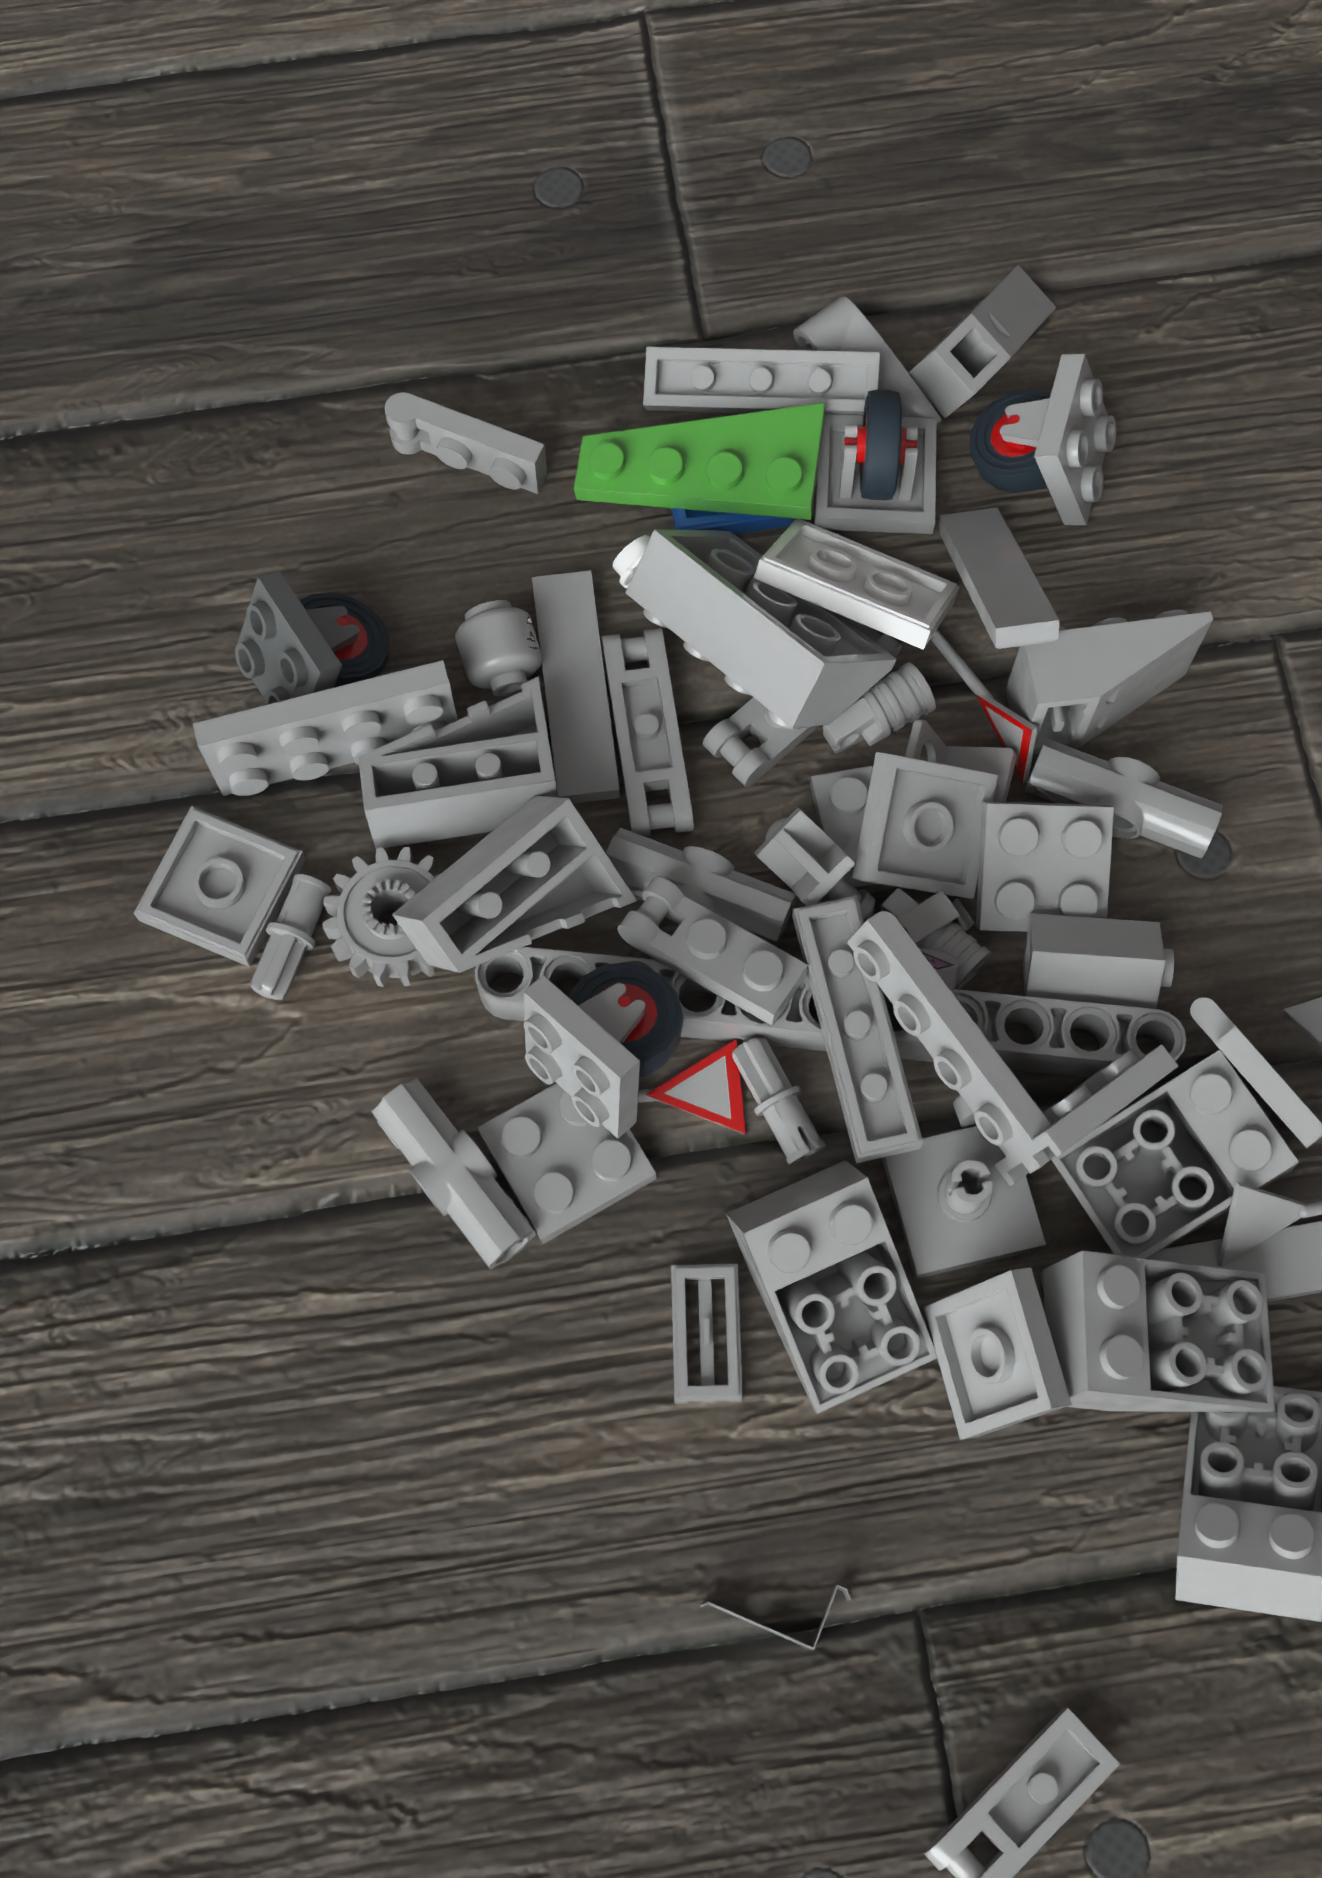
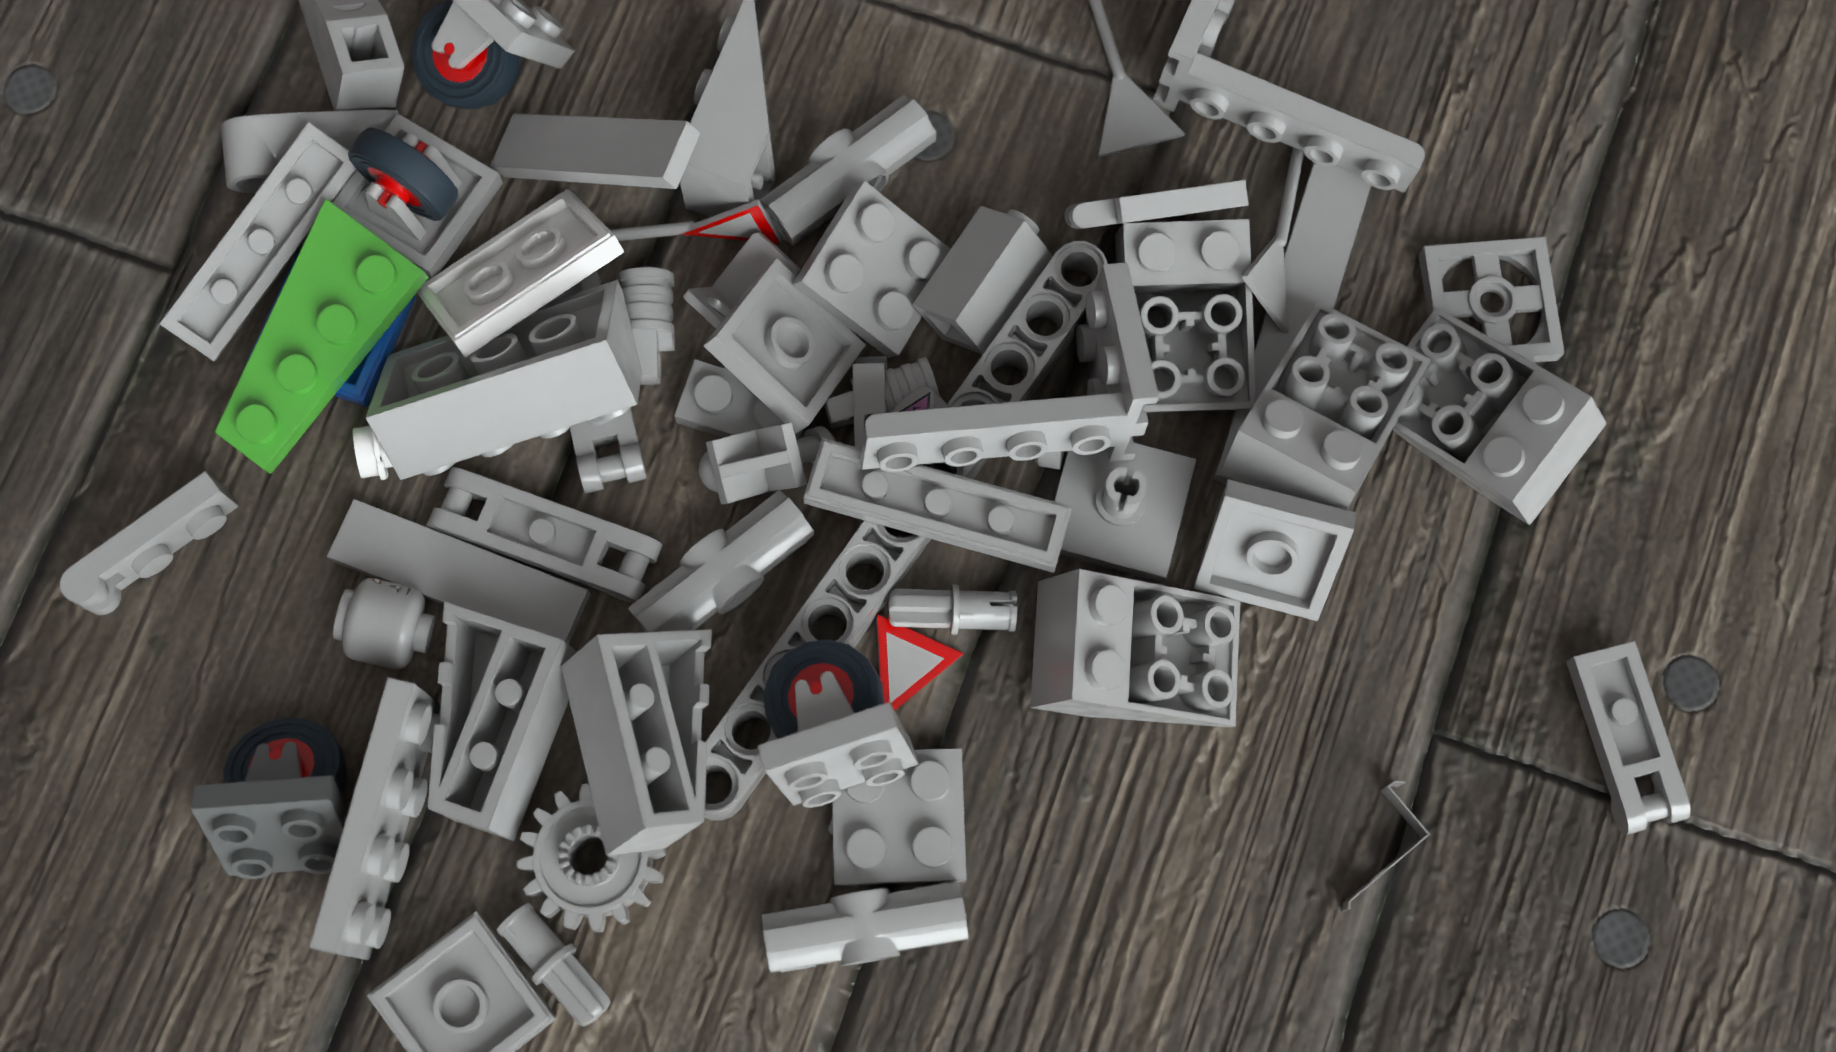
camera: 65 degrees left, 5 degrees up
(708, 1391) = (1109, 804): light grey tile -> none
(713, 951) = (800, 588): light grey plate -> none

